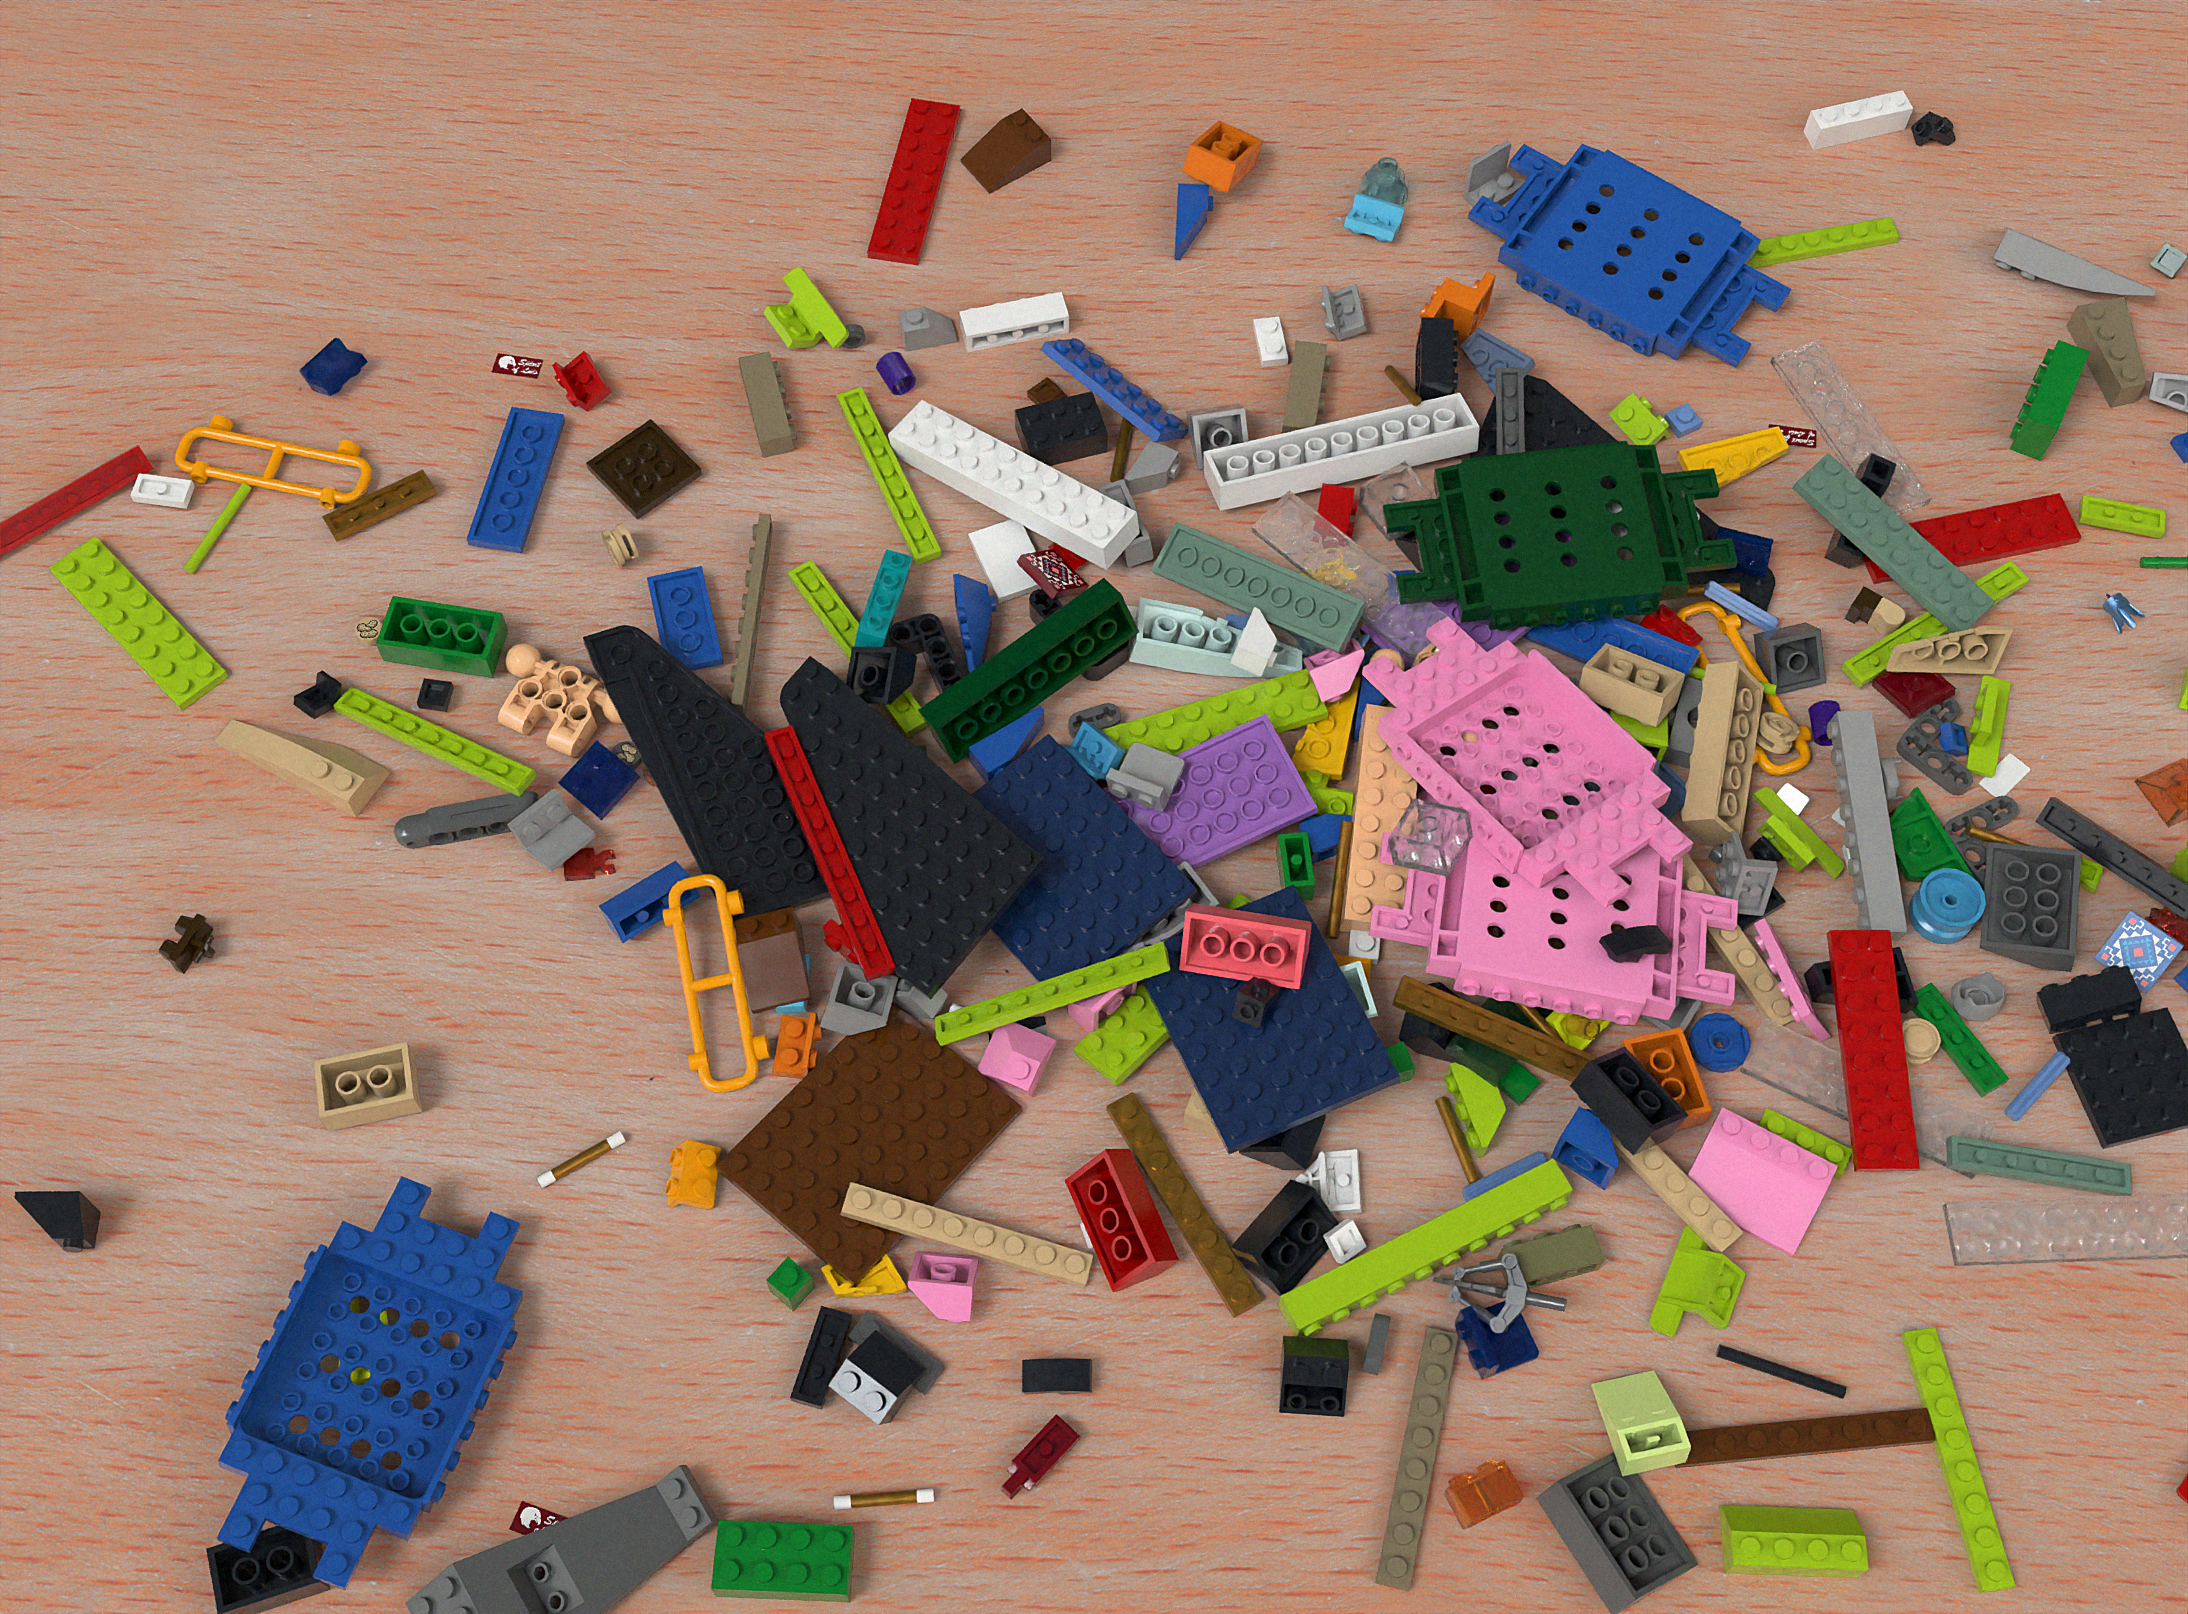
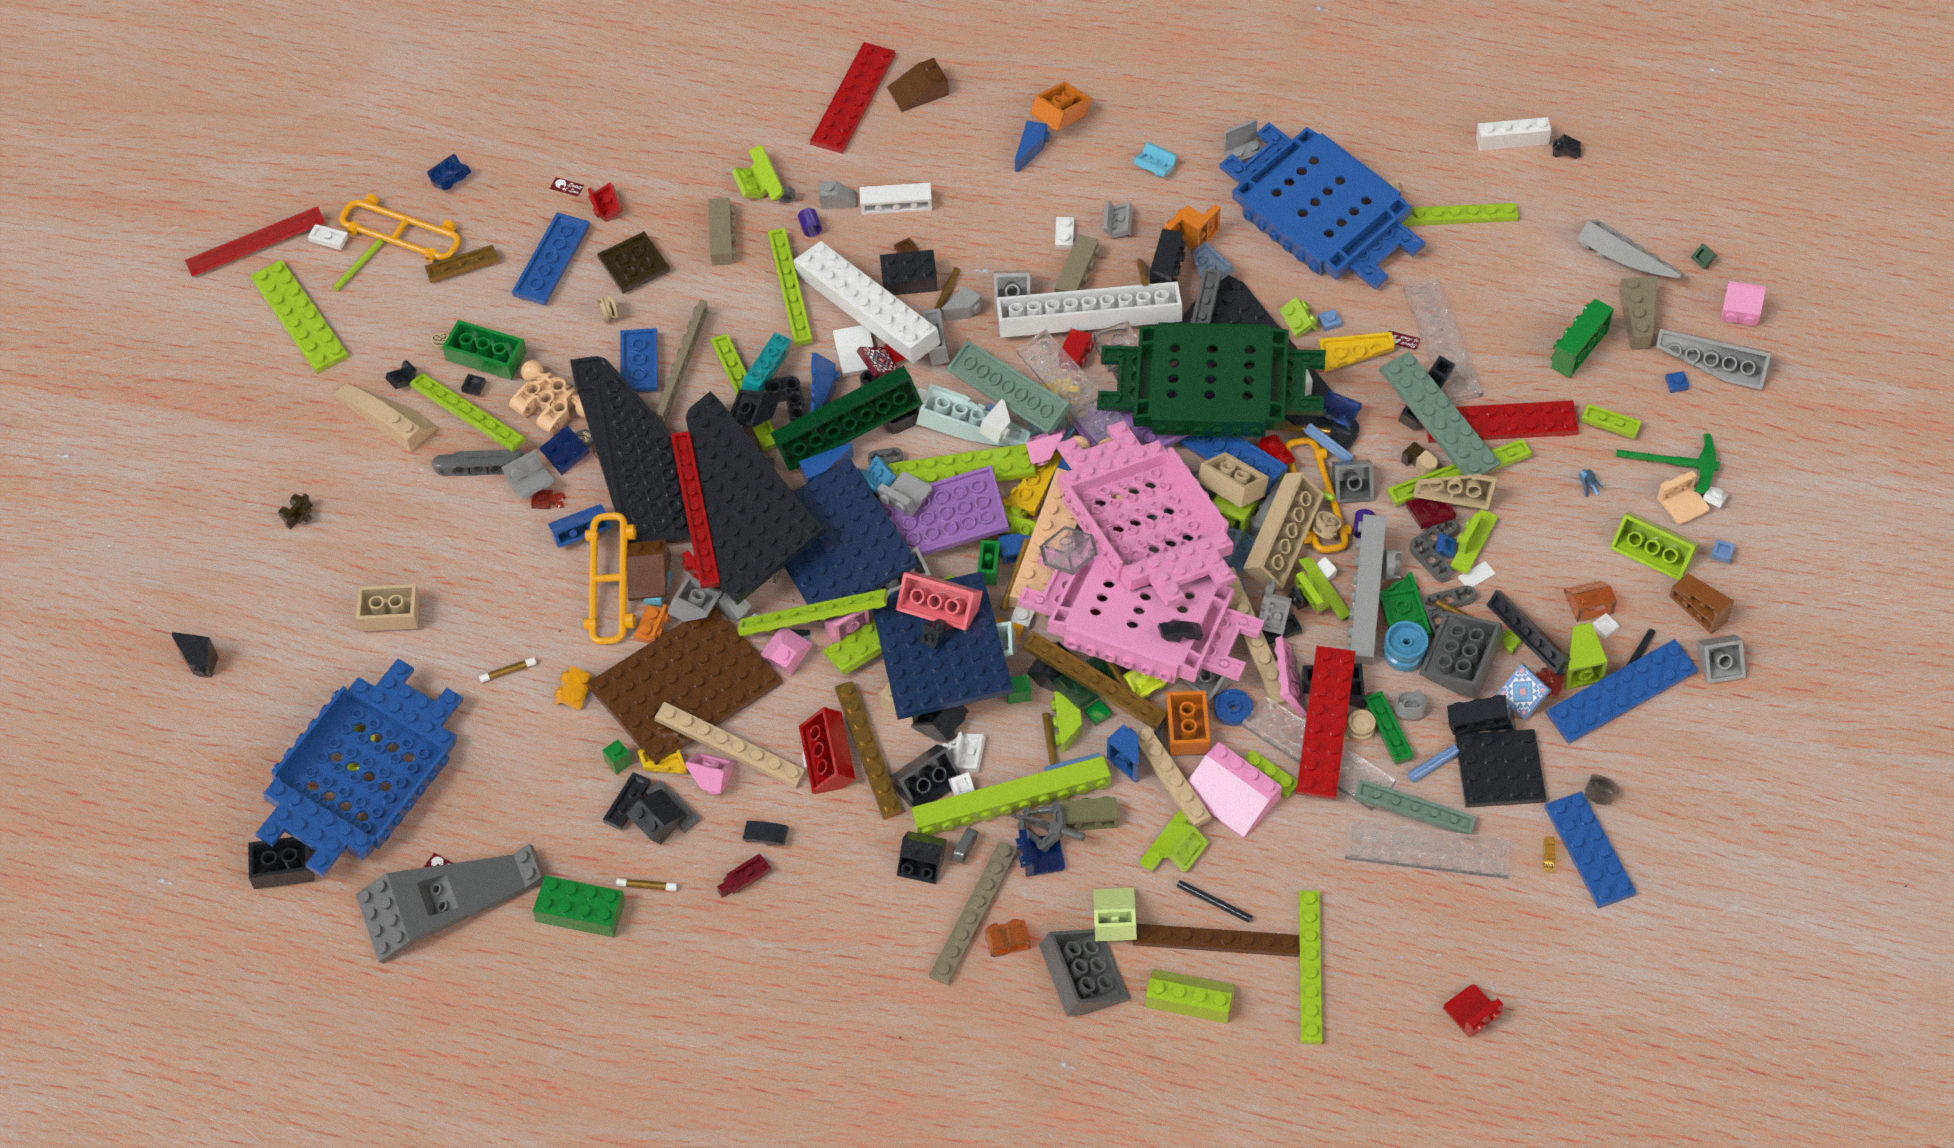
camera: 15 degrees right, 5 degrees down
(1115, 390) = (950, 250): blue plate -> none
(1385, 182) = (1170, 137): clear light blue piece -> none
(1582, 1027) = (1149, 684): clear yellow hinge -> none
(1628, 1100) = (1153, 724): black brick -> none

